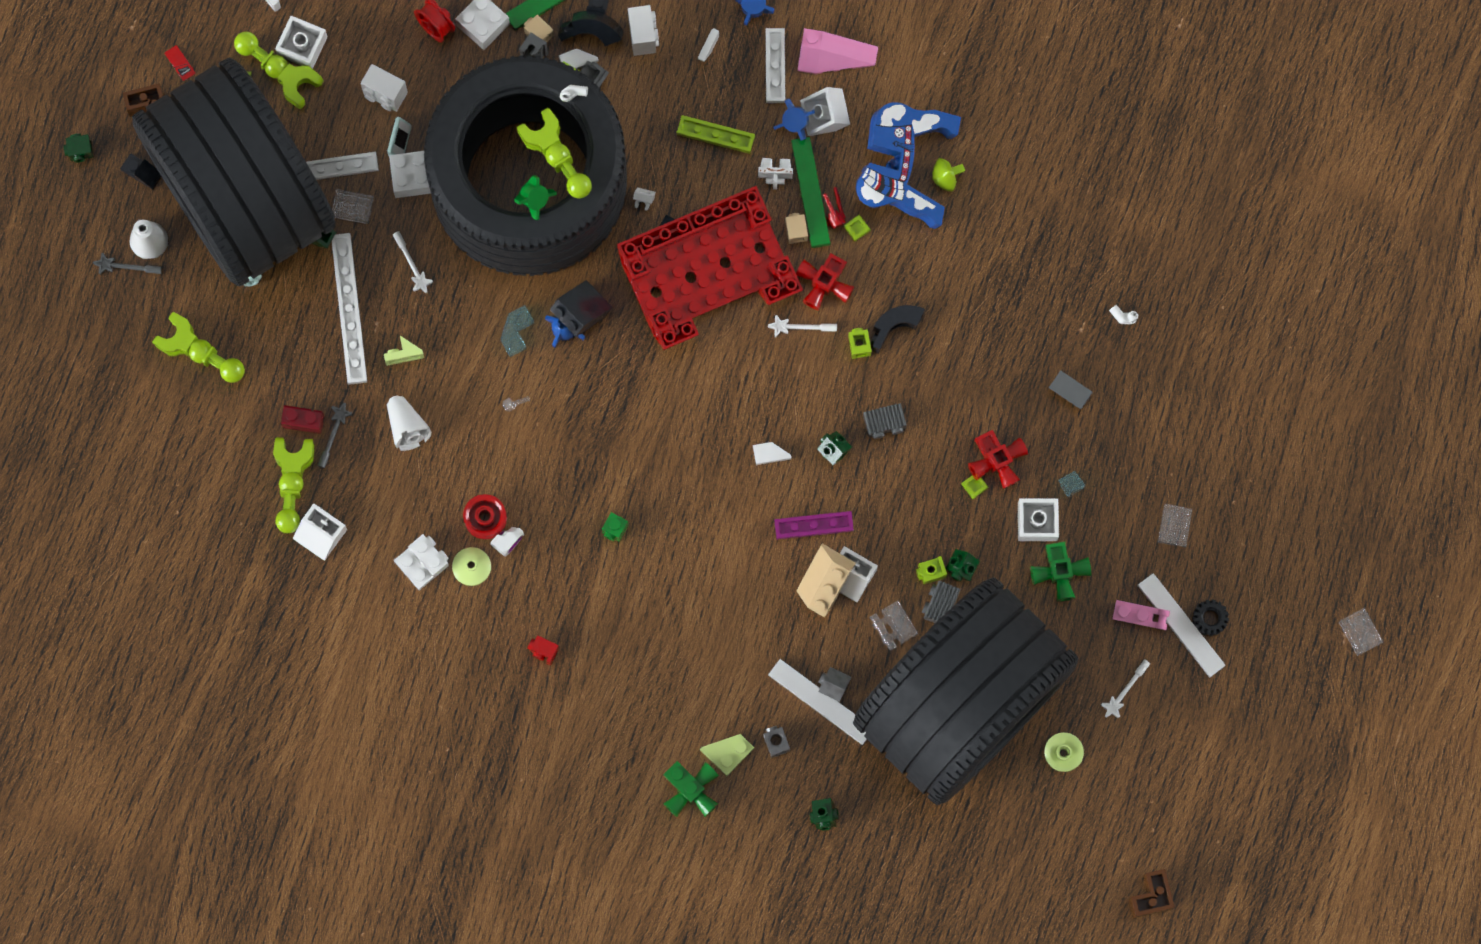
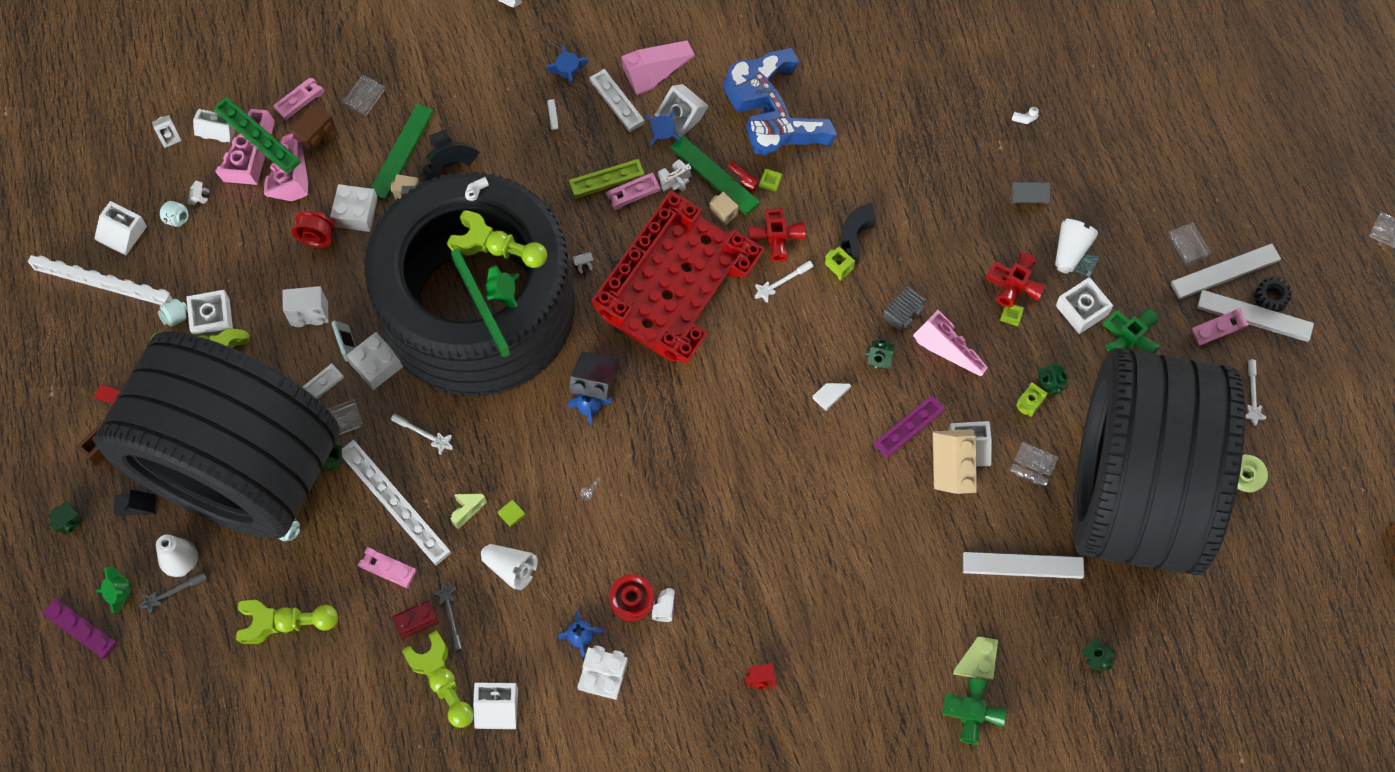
camera: 30 degrees left, 10 degrees down
(36, 249) = (79, 628): none -> magenta plate
(83, 235) = (115, 589): none -> green piece
(273, 19) = (173, 312): none -> light aqua head
(309, 361) = (388, 568): none -> bright pink plate
(425, 518) = (580, 633): none -> blue piece
(437, 381) = (511, 513): none -> lime tile
(475, 575) = (648, 658): yellowish green dish -> none
(509, 198) = (480, 303): none -> green tile
(515, 322) = (549, 438): clear light blue tile -> none
(614, 527) = (748, 534): green brick -> none
(642, 31) = (491, 134): white brick -> none
(731, 161) = (633, 191): none -> bright pink plate
(773, 749) = (1021, 619): flat silver brick -> none
(834, 684) = (1024, 542): flat silver brick -> none
(897, 470) = (940, 338): none -> wedge
(942, 601) = (1058, 421): dark grey brick -> none
(944, 174) = (811, 97): lime piece -> none
(1070, 460) = (1073, 244): none -> white cone
(1187, 570) = (1225, 271): none -> white tile

